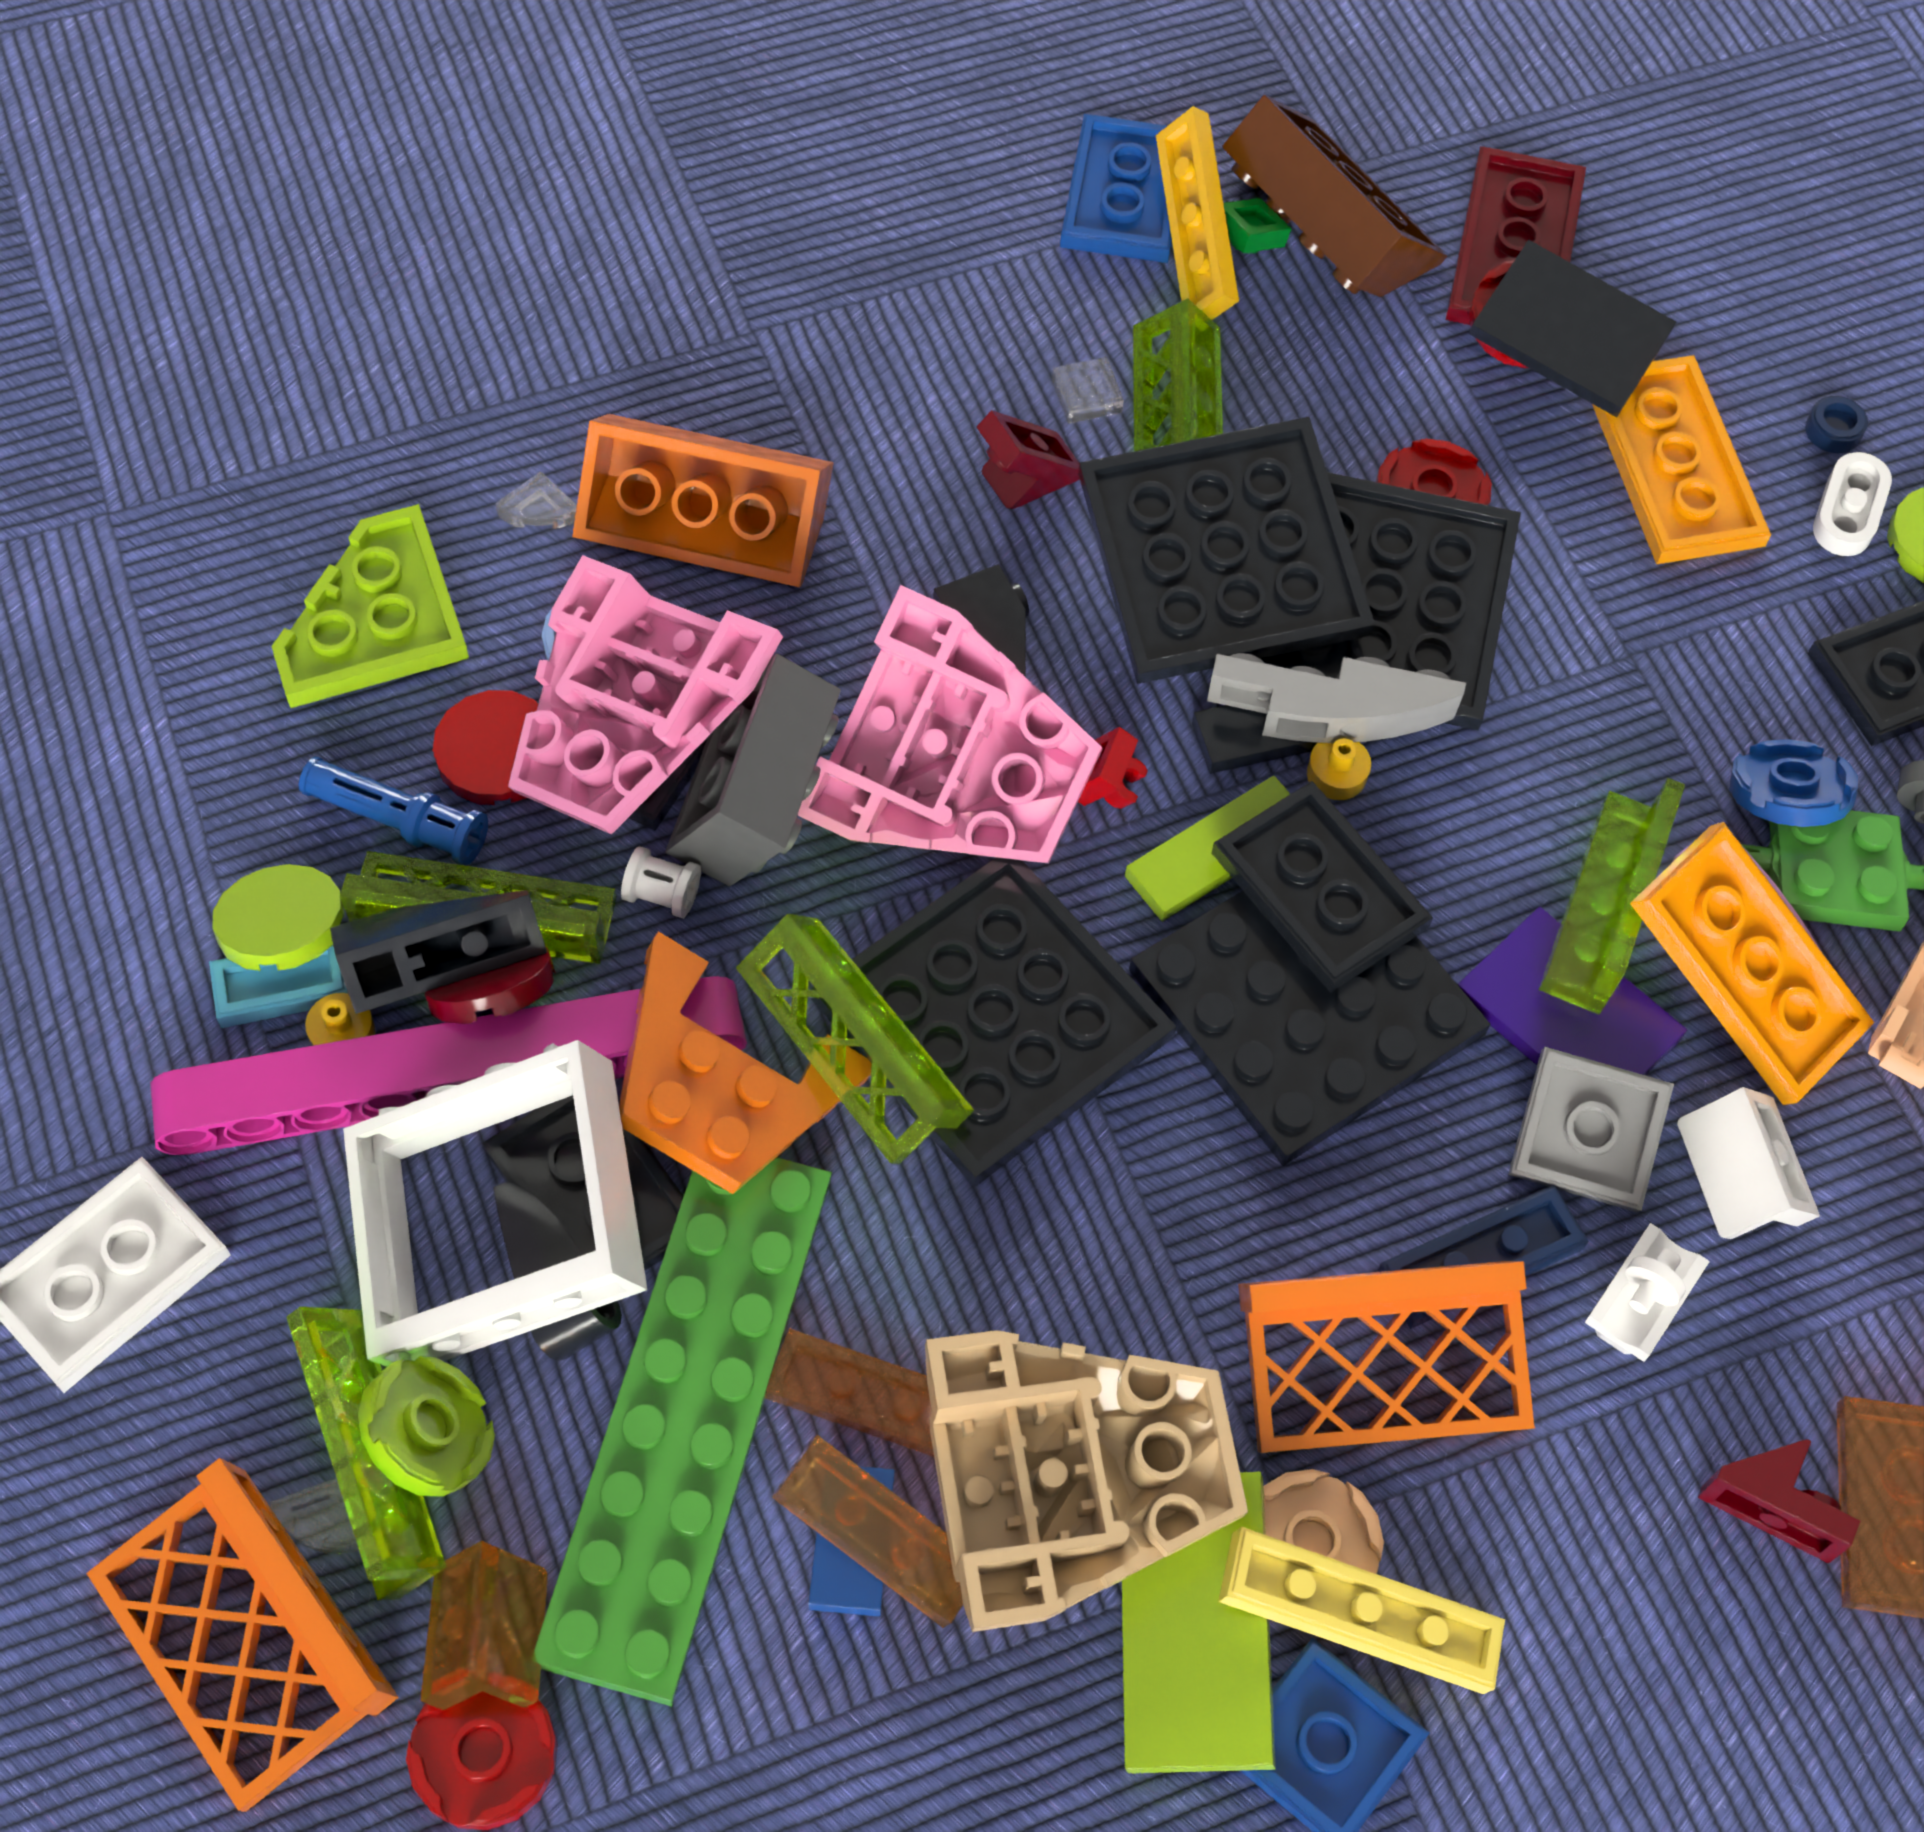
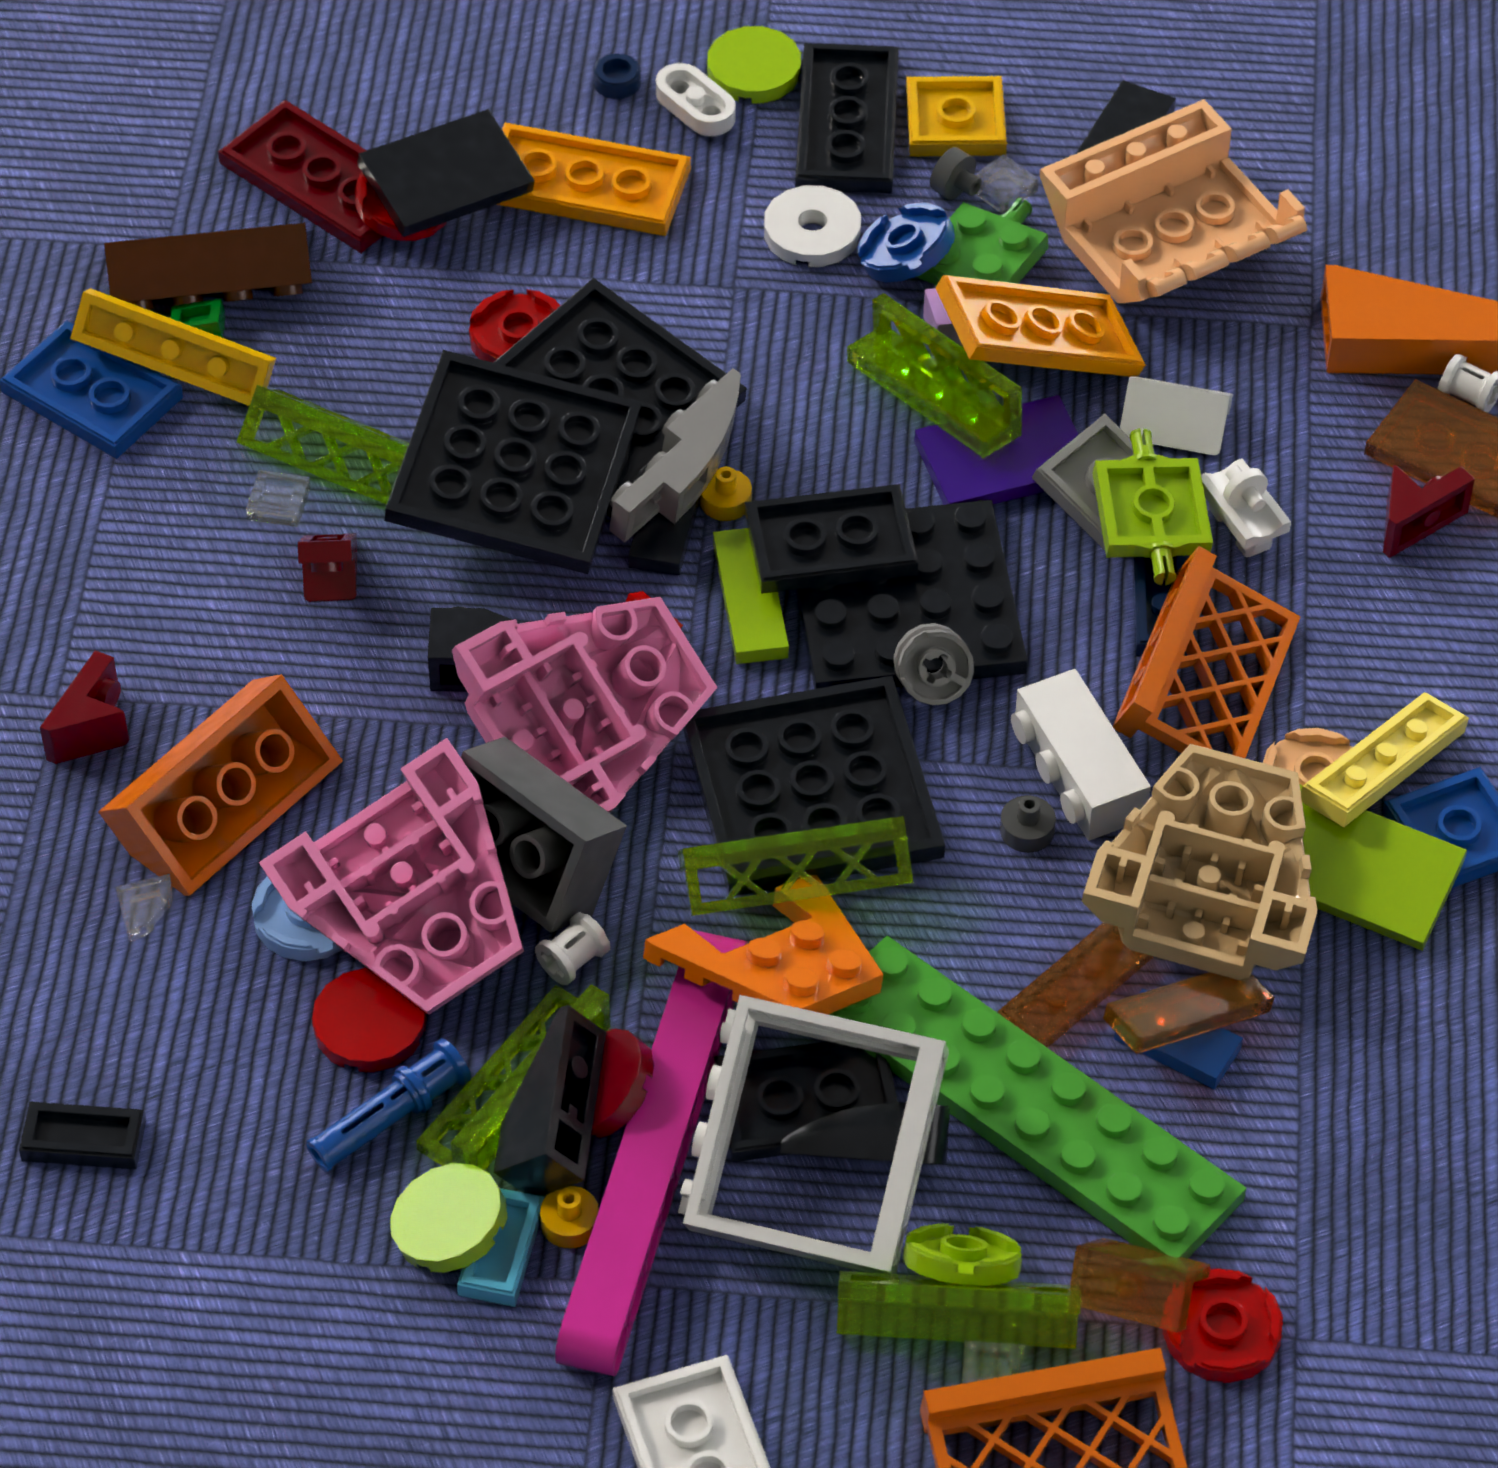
camera: 60 degrees left, 10 degrees down
(255, 579) = (82, 1135): none -> black tile
(372, 614) = (182, 1055): lime plate -> none
(719, 349) = (86, 714): none -> dark red slope
(1067, 1253) = (1027, 823): none -> dark grey tile
(1181, 1263) = (1079, 753): none -> white brick
(1233, 1055) = (930, 642): none -> light grey wheel
(1569, 1192) = (1152, 506): none -> lime plate
(1774, 662) = (812, 205): none -> white tile

